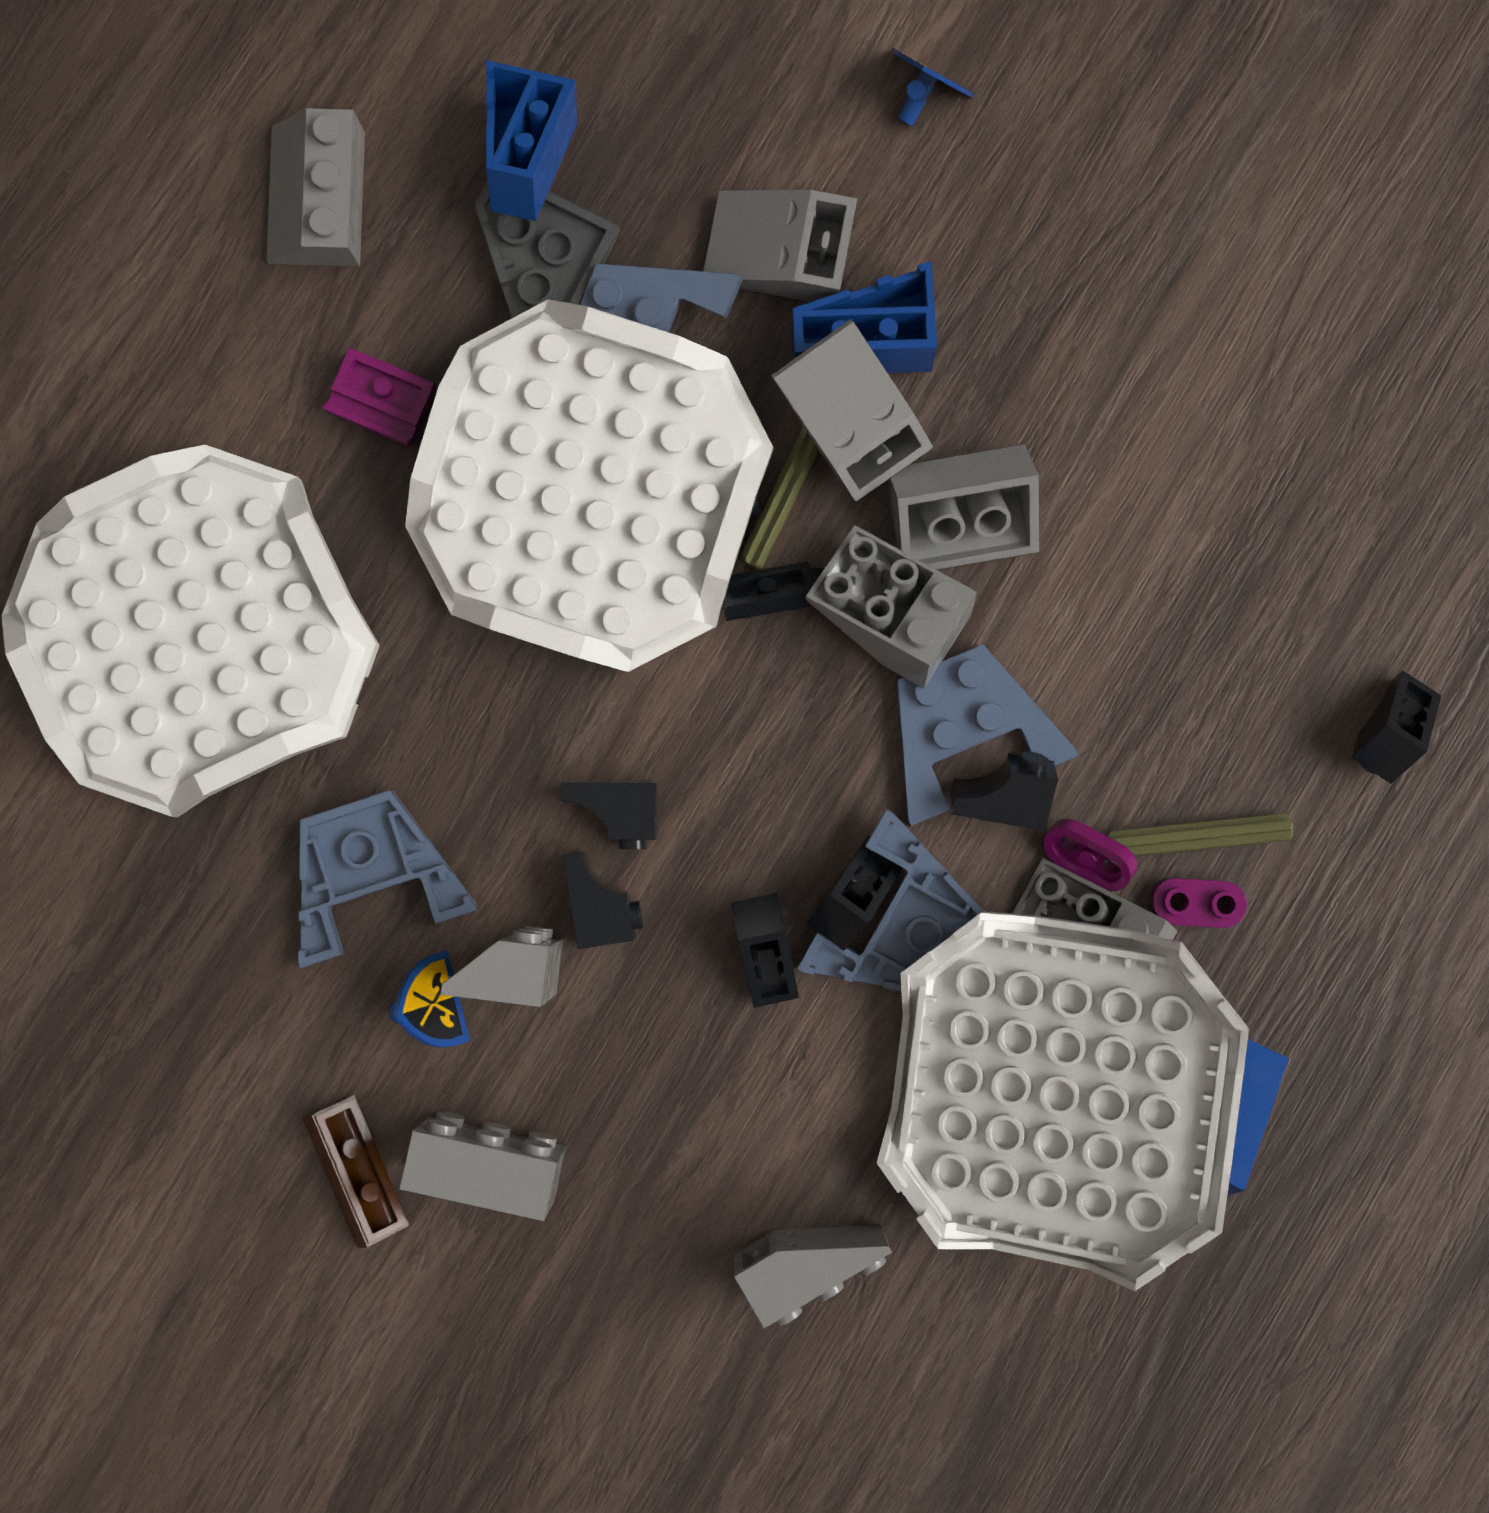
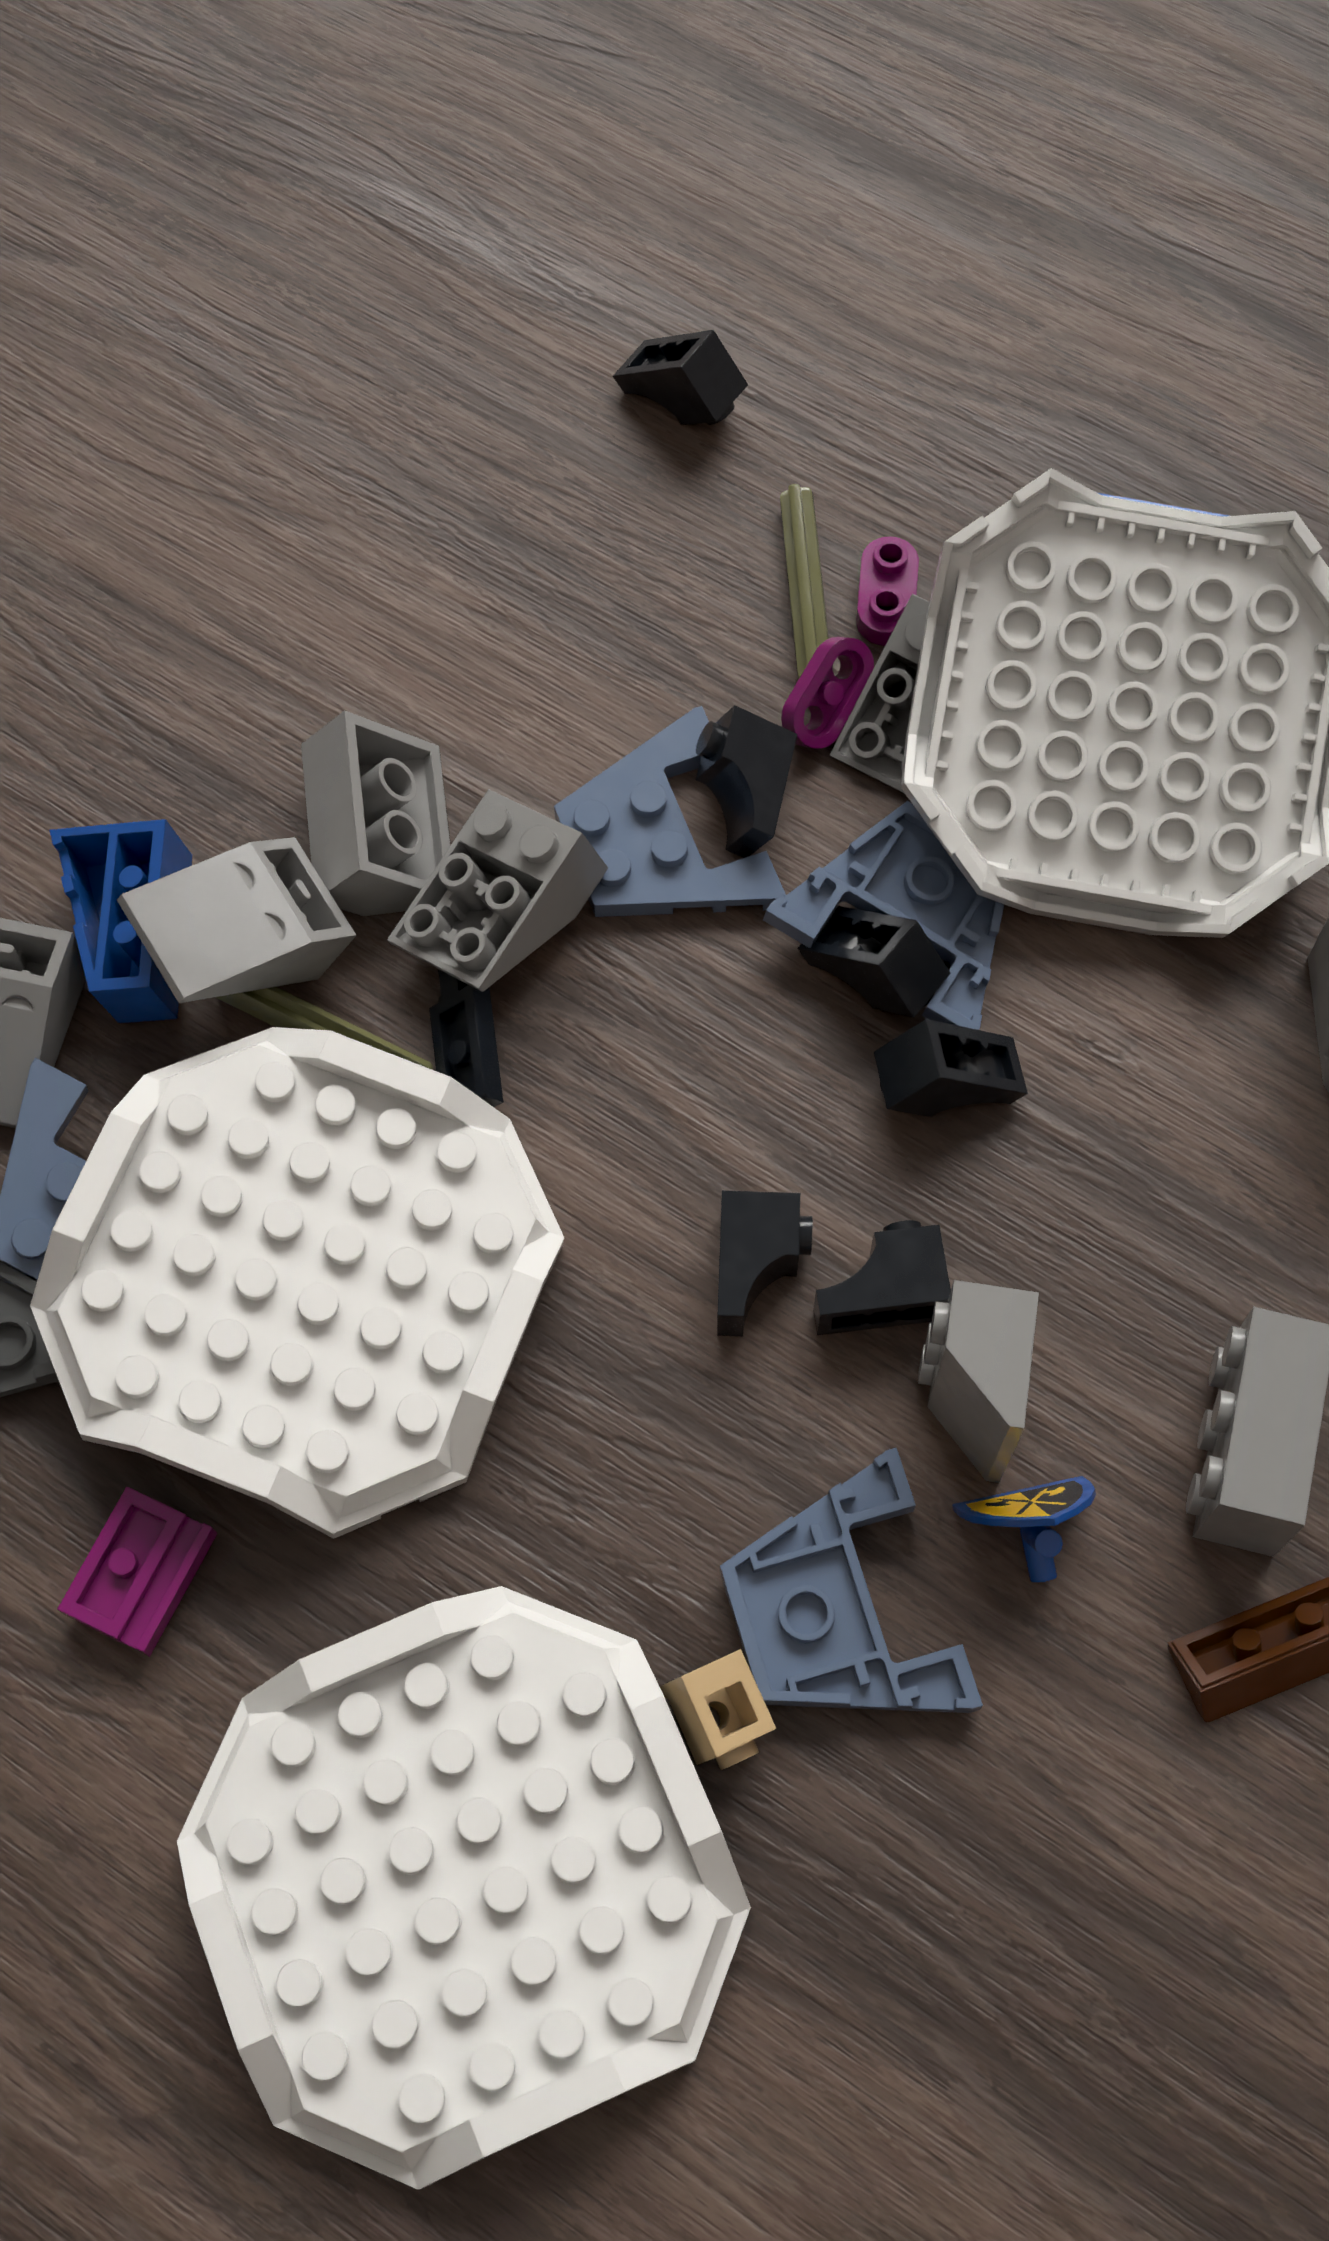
camera: 80 degrees left, 20 degrees down
(283, 806) = (735, 1696): none -> tan brick

